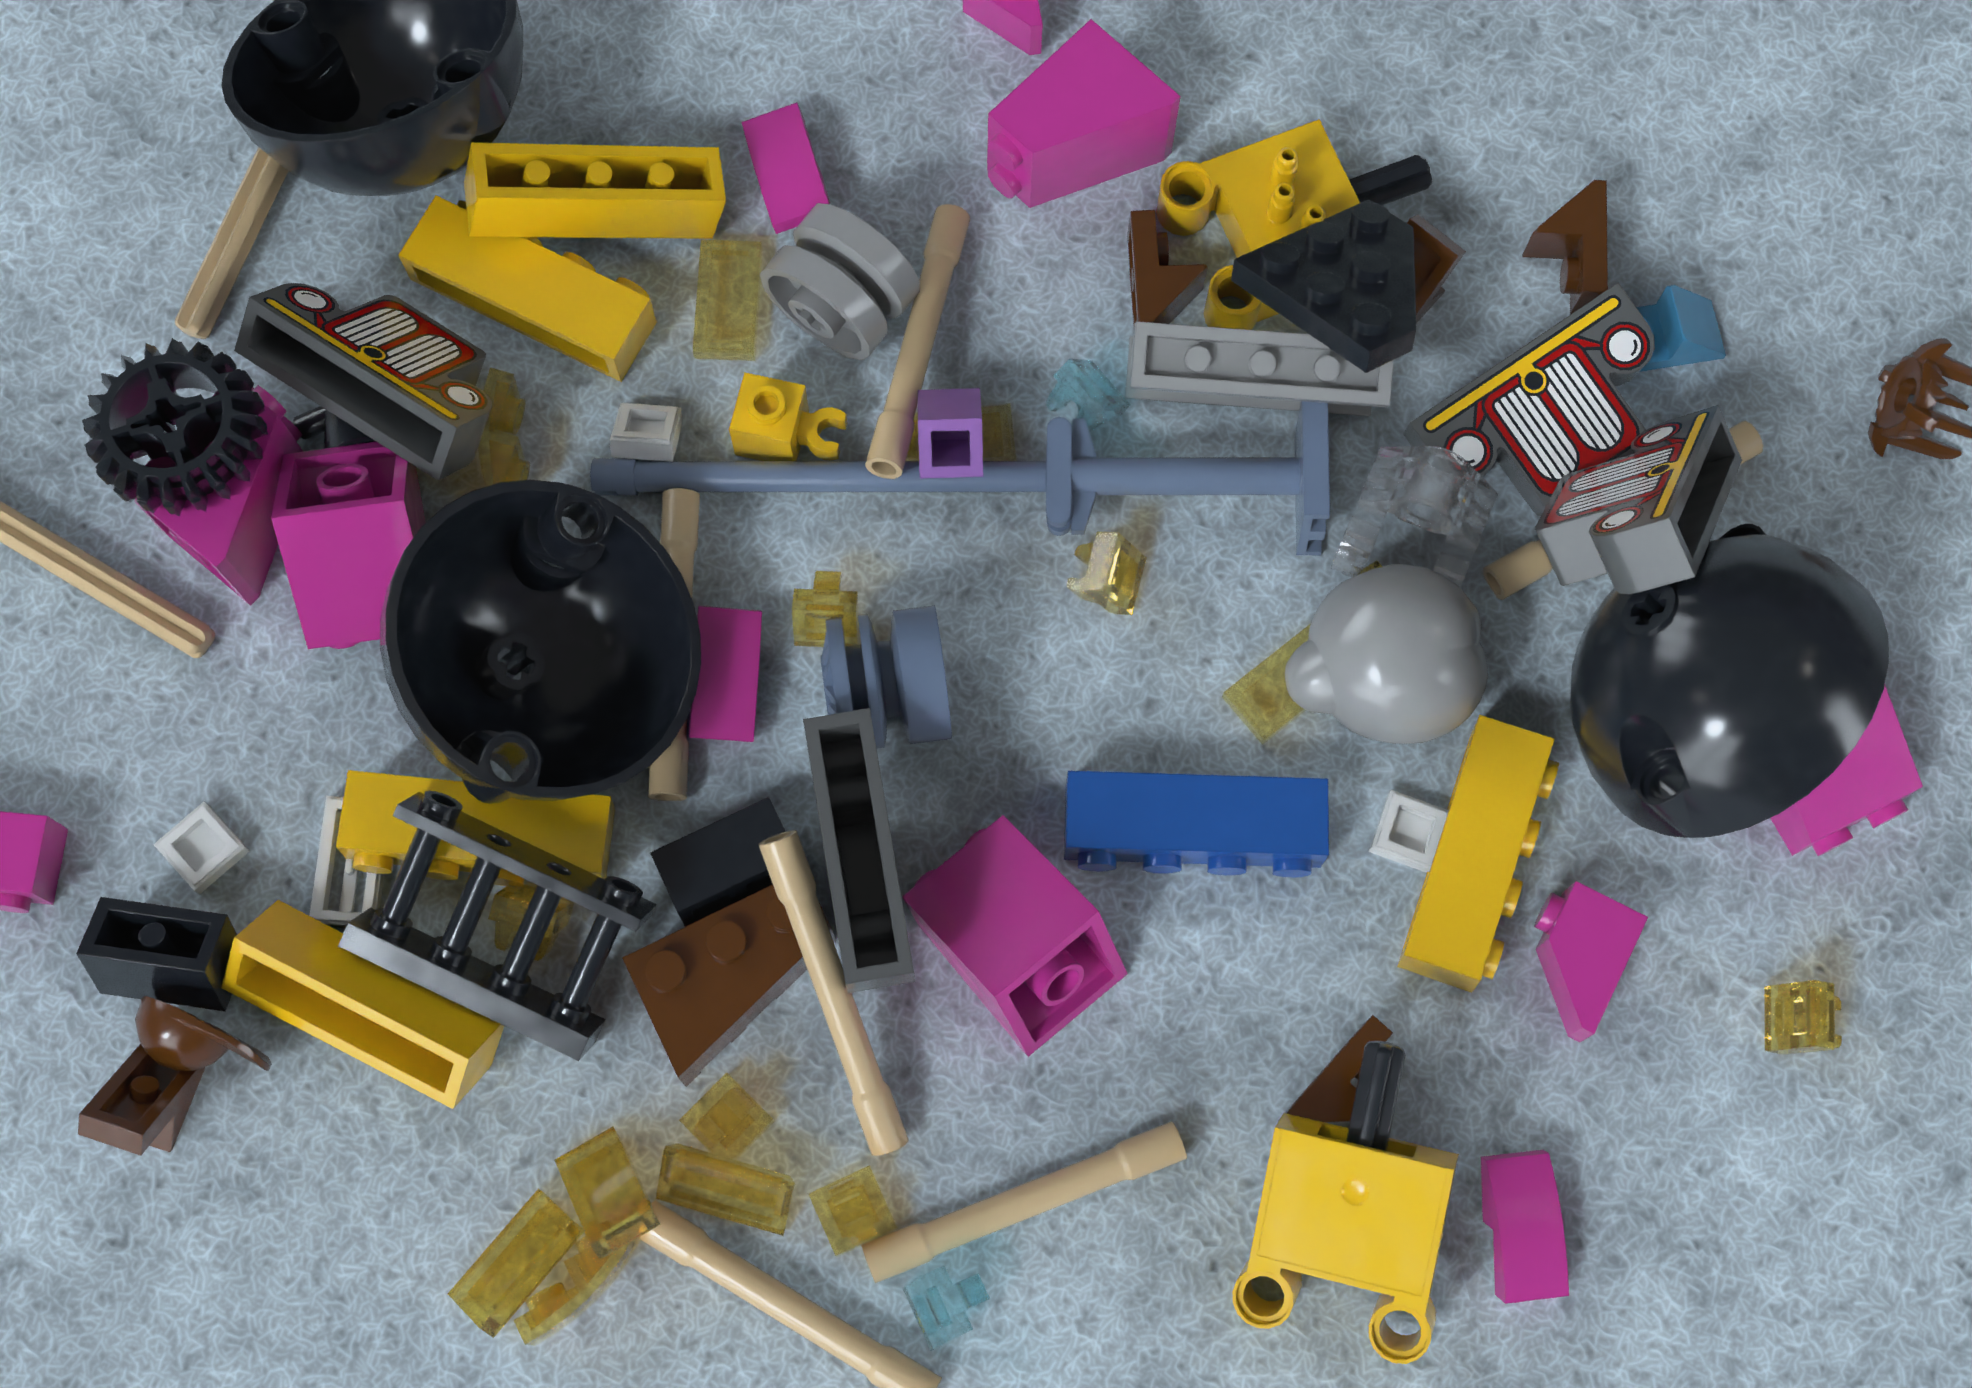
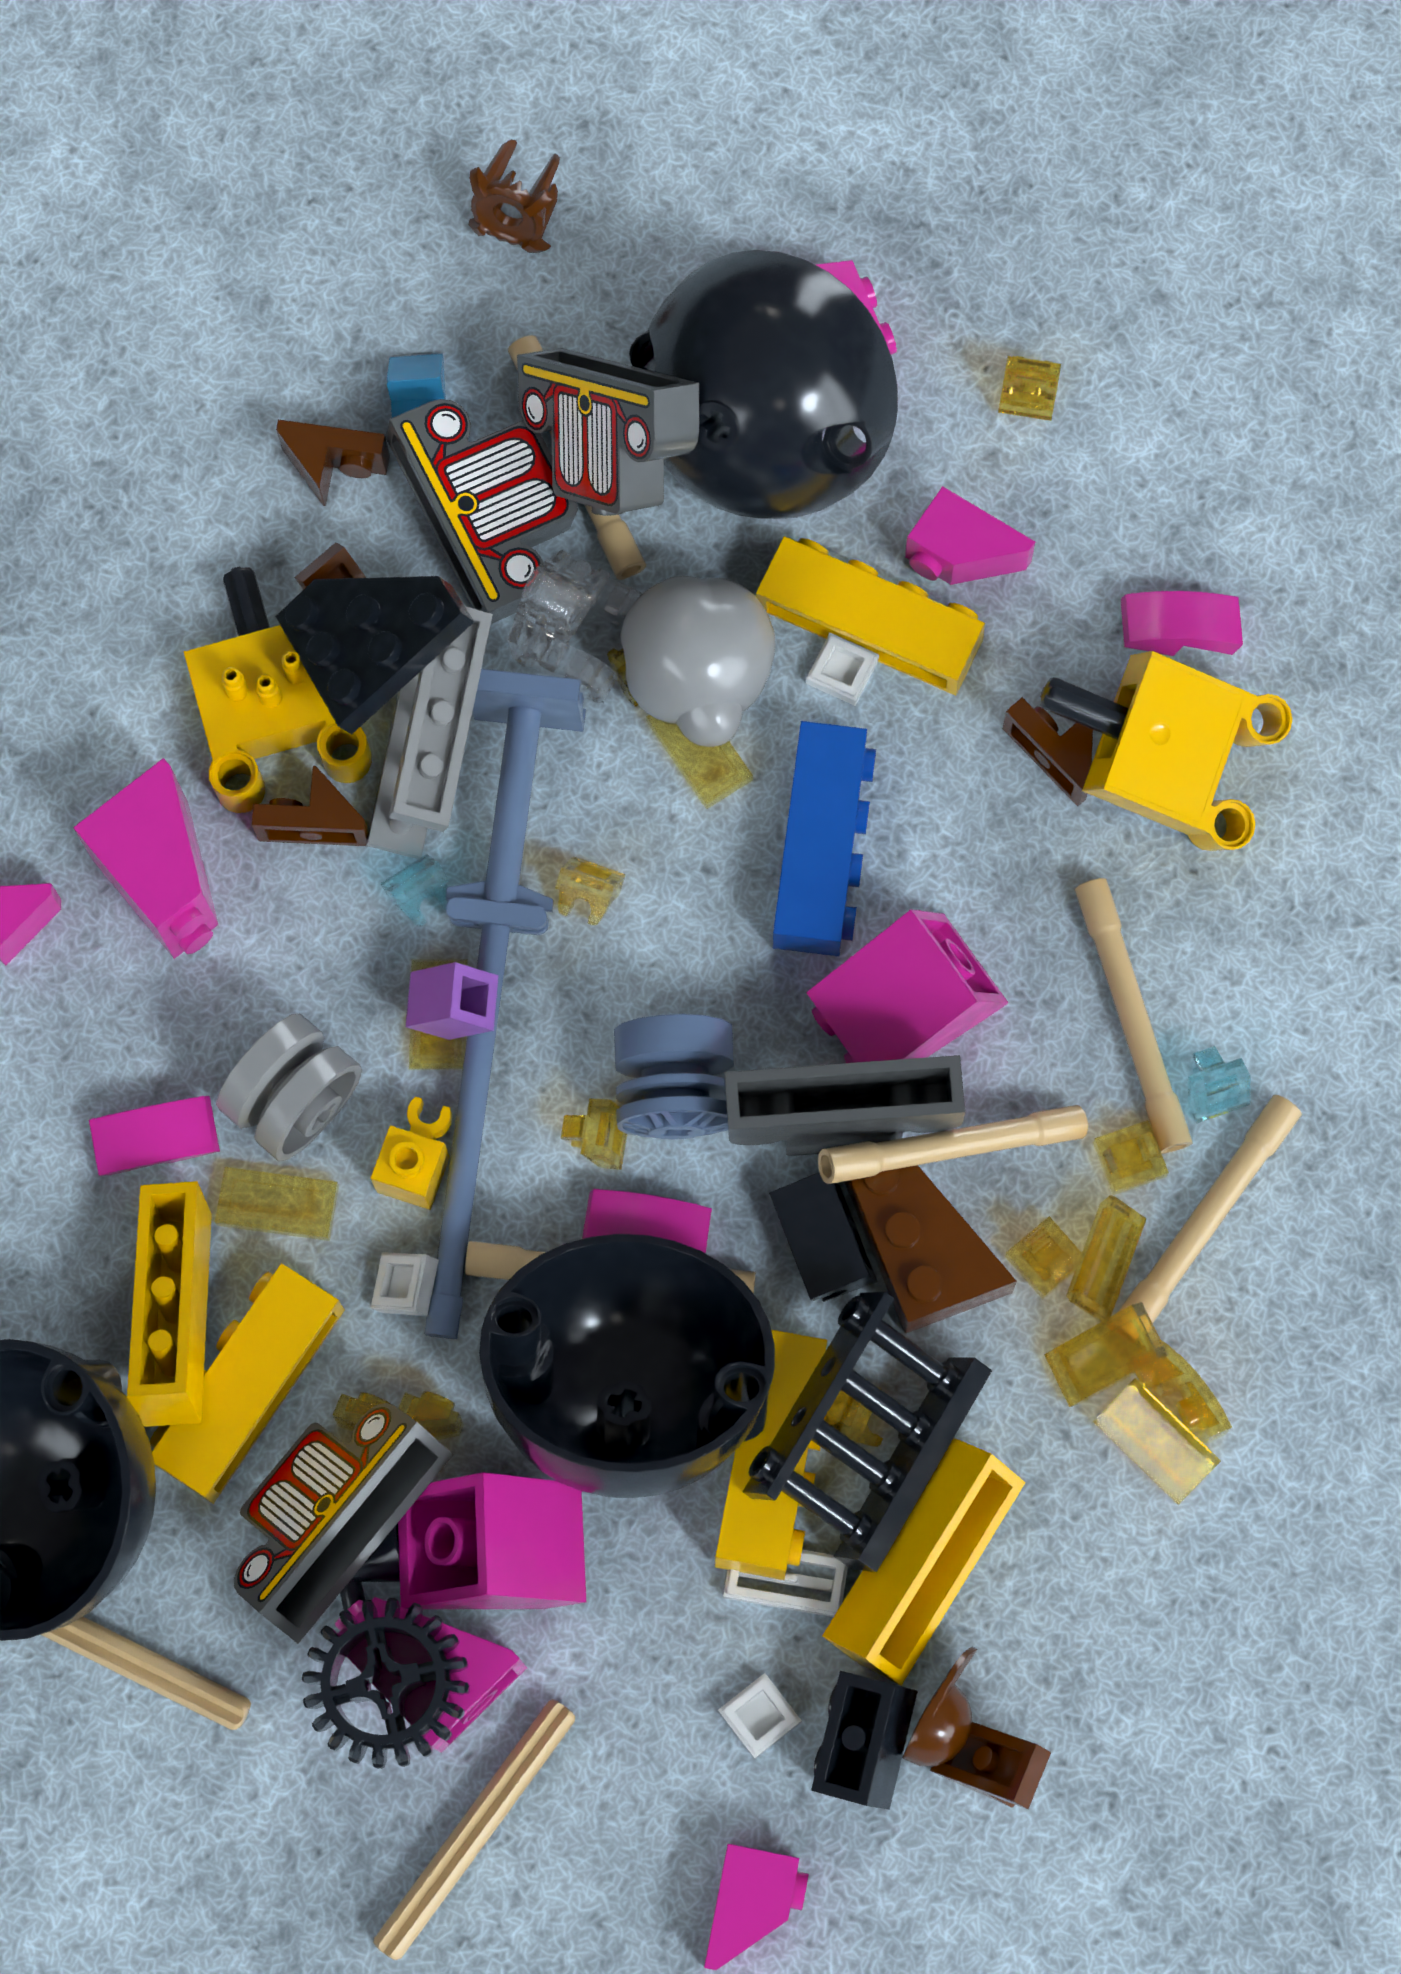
camera: 80 degrees left, 0 degrees up
(896, 423) = (432, 1049): tan piece -> none

